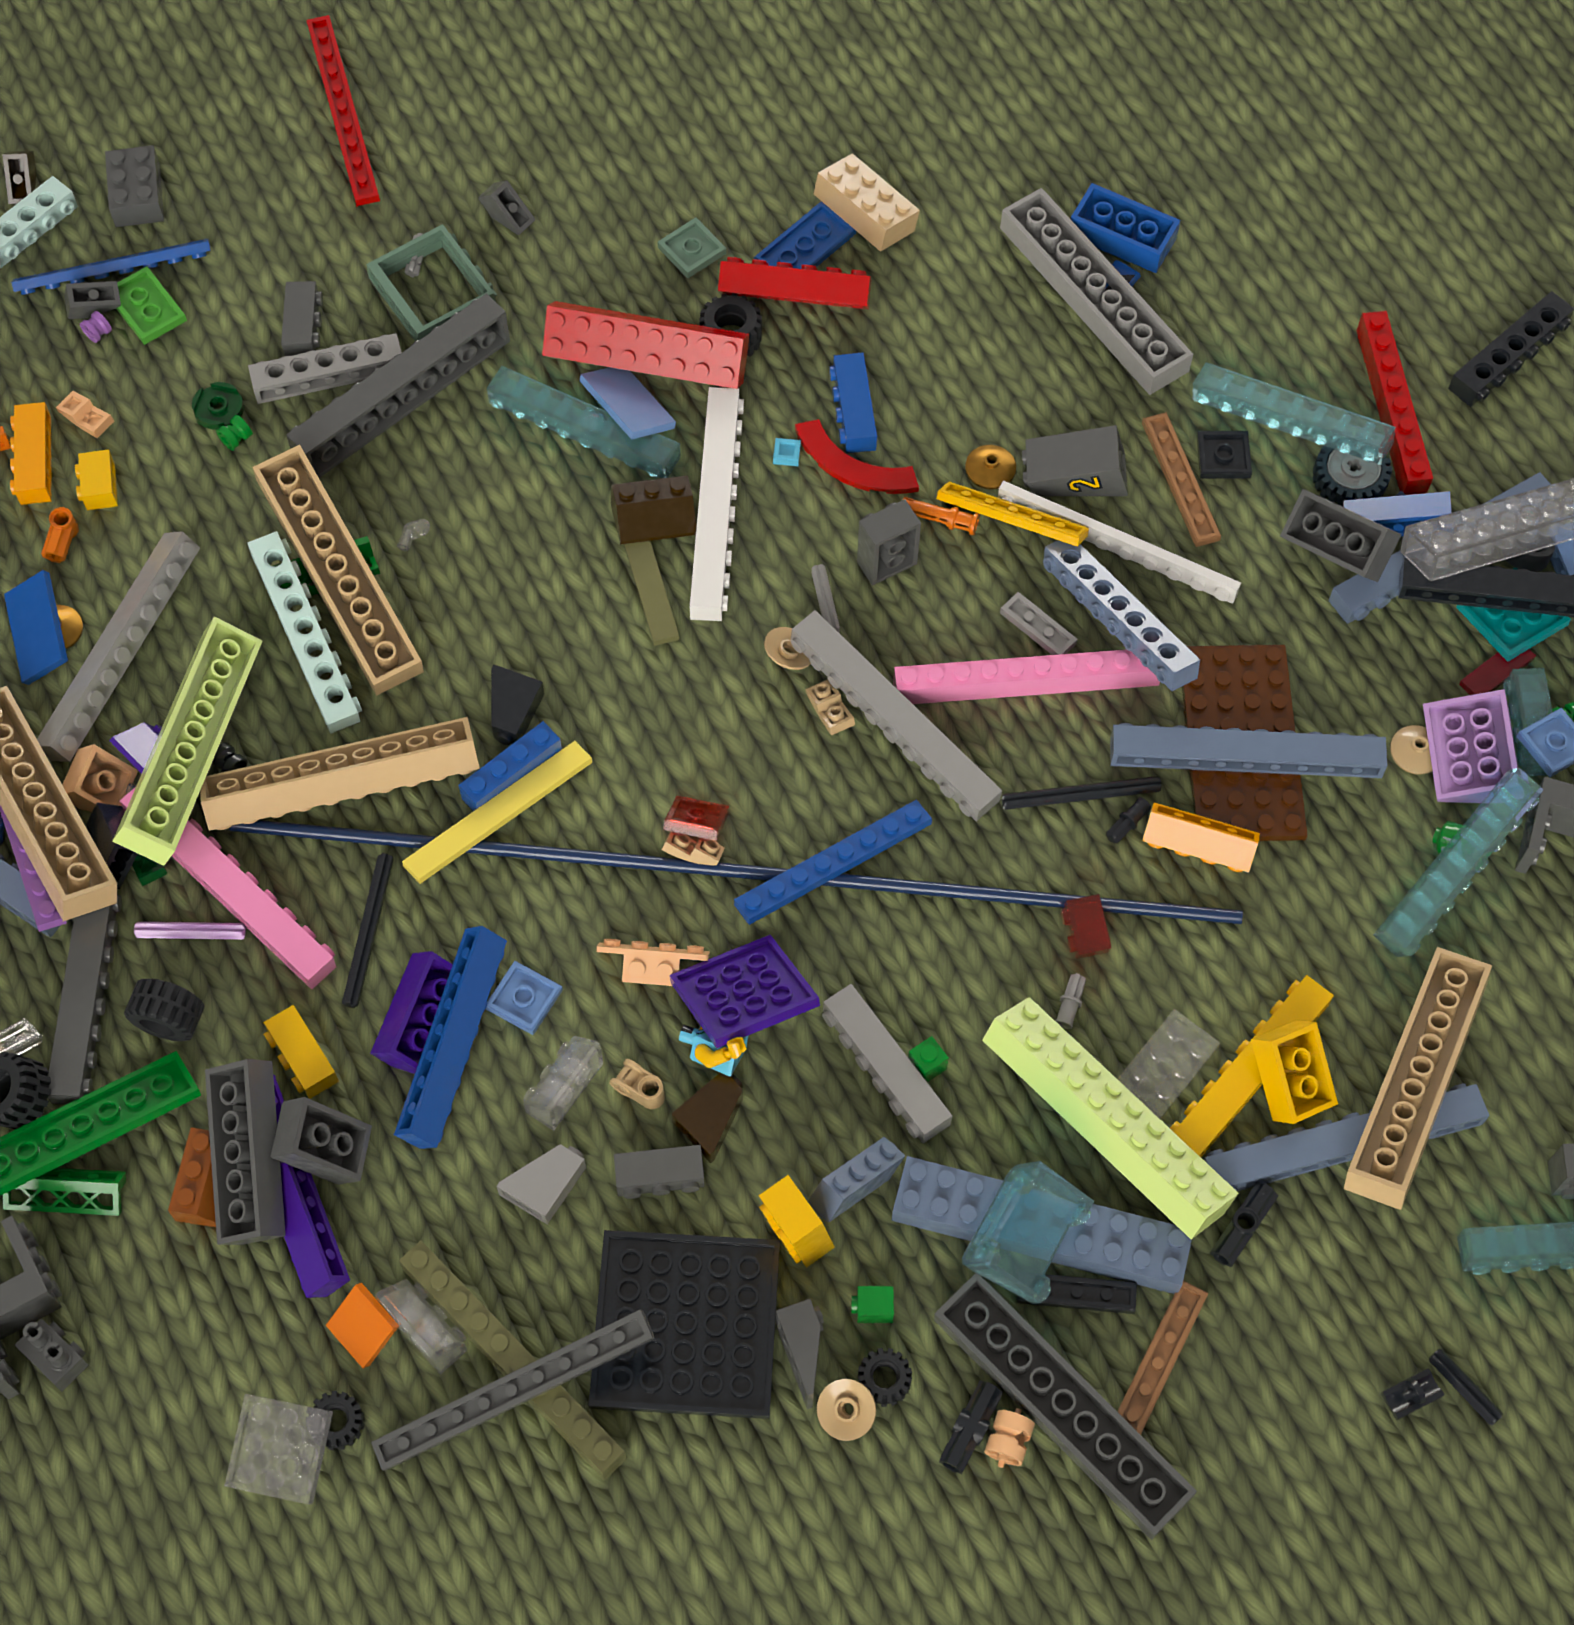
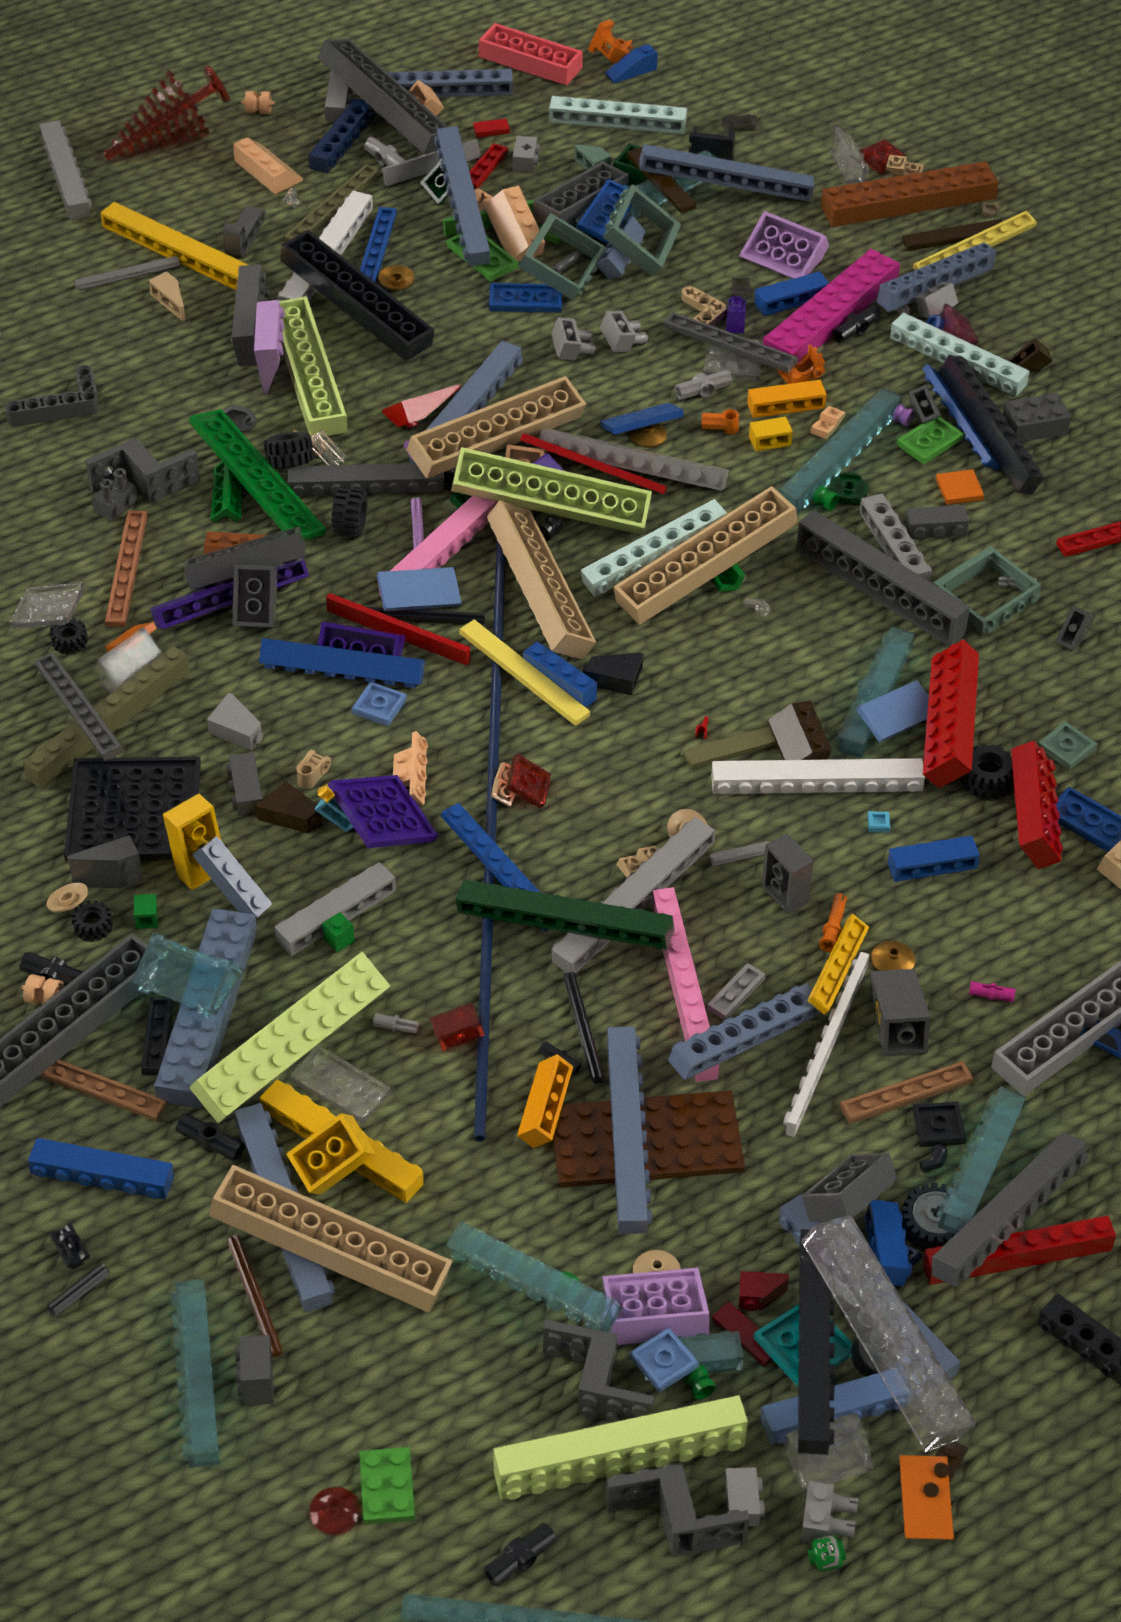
camera: 85 degrees right, 15 degrees down
(123, 692) = (593, 463): none -> red tile
(136, 234) = (991, 425): none -> black brick
(147, 405) = (841, 449): none -> clear light blue brick
(200, 1339) = (126, 569): none -> nougat tile
(236, 288) = (959, 487): none -> orange tile
(300, 1052) = (340, 581): yellow brick -> none
(330, 928) = (418, 589): none -> medium blue tile
(392, 965) = (385, 623): none -> red tile
(563, 1081) = (309, 725): clear slope -> none
(617, 618) = (702, 728): none -> red hand
(850, 470) = (869, 861): red tile -> none
(935, 789) = (565, 914): none -> dark green brick
(1052, 365) = (992, 991): none -> dark pink pin
(1274, 462) = (937, 1159): none -> black arm
(1292, 1359) = (101, 1168): none -> blue brick
(1364, 393) = (1009, 1209): none -> dark grey brick
(1448, 648) = (760, 1289): none -> dark red slope
(1476, 1175) = (254, 1293): none -> reddish brown axle

